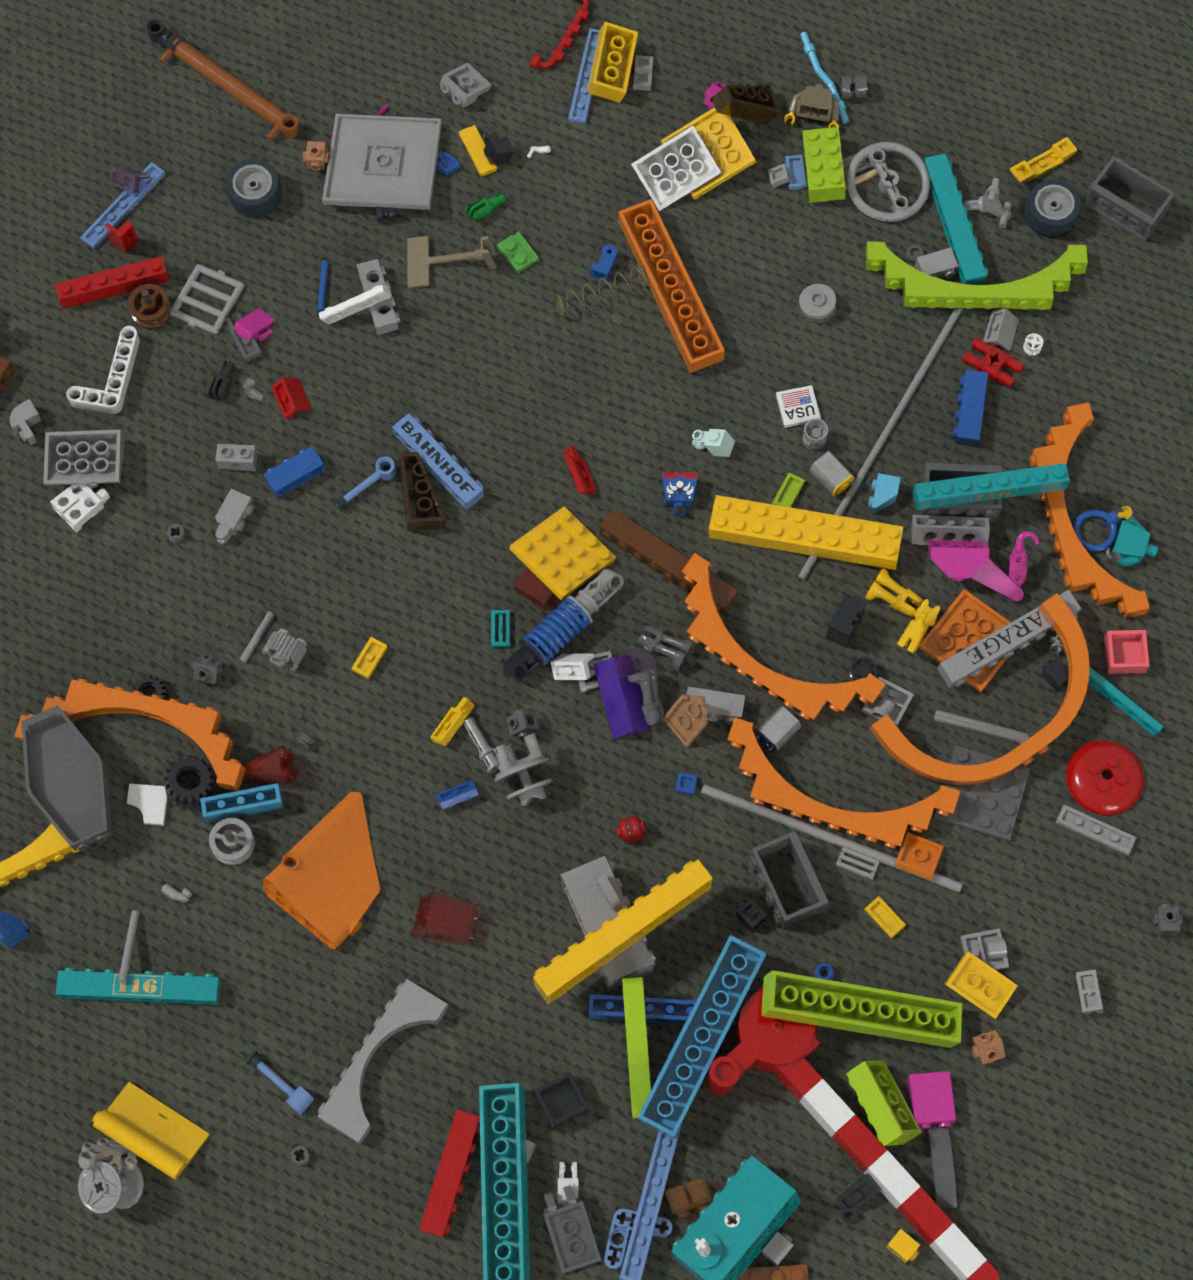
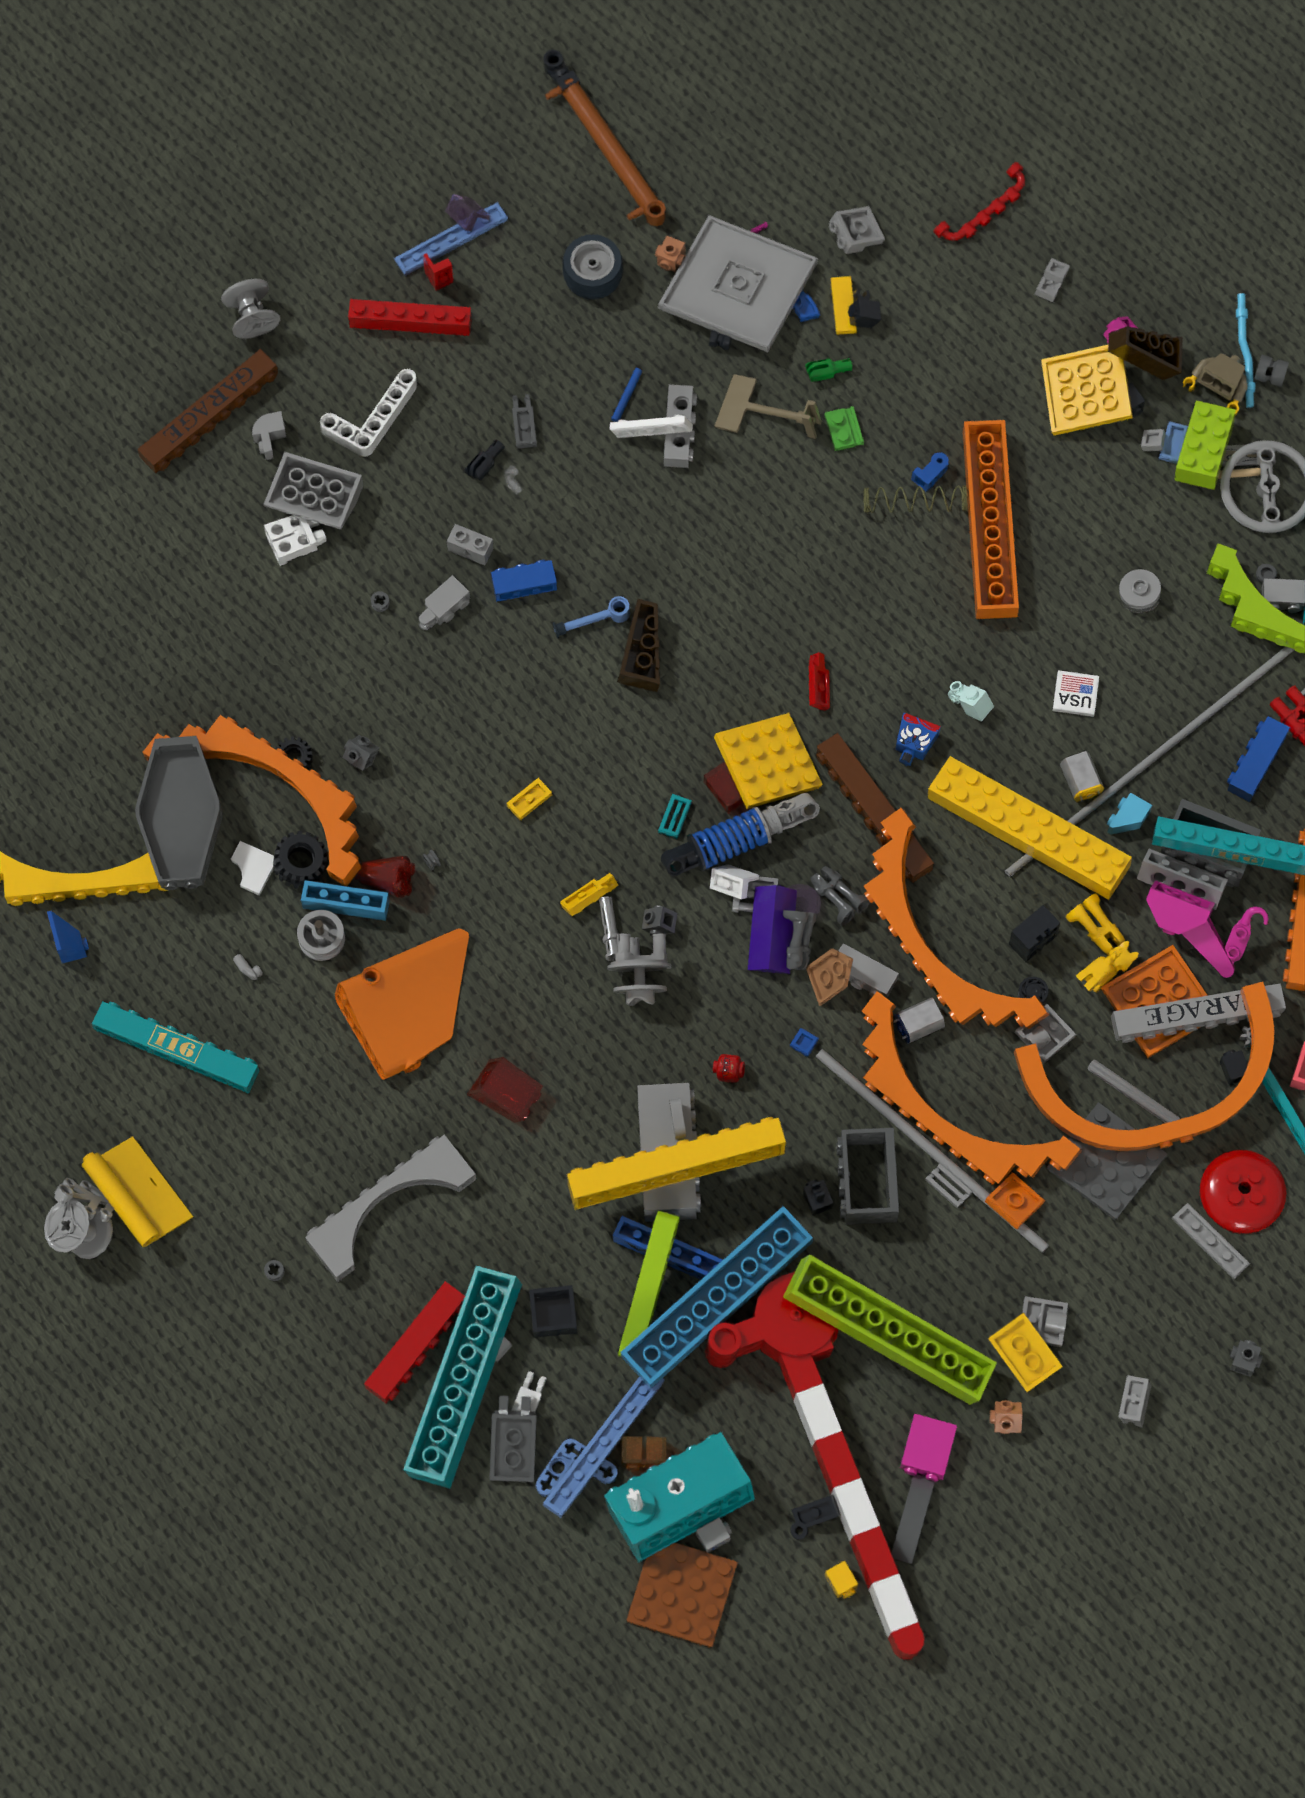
camera: 20 degrees right, 0 degrees up
(128, 947) = (180, 1003): light grey bar -> none
(149, 306) = (439, 355): reddish brown wheel -> none
(222, 315) = (492, 345): light grey bar -> none
(254, 325) = (540, 412): dark pink piece -> none
(257, 636) = (423, 737): light grey bar -> none
(285, 649) = (445, 760): light grey brick -> none
(290, 396) = (550, 500): red panel -> none
(298, 1098) = (293, 1213): medium blue piece -> none
(438, 461) = (675, 620): medium blue brick -> none
(457, 794) = (565, 969): blue plate -> none
(544, 149) = (910, 326): white piece -> none
(581, 99) = (991, 263): medium blue tile -> none
(612, 62) = (1021, 258): yellow brick -> none
(676, 168) = (1045, 395): white slope -> none
(789, 491) = (1030, 779): lime tile -> none
(815, 434) = (1080, 728): light grey wheel -> none
(824, 966) = (873, 1277): blue plate -> none
(883, 1103) = (876, 1431): lime brick -> none
(885, 917) = (955, 1250): yellow tile -> none

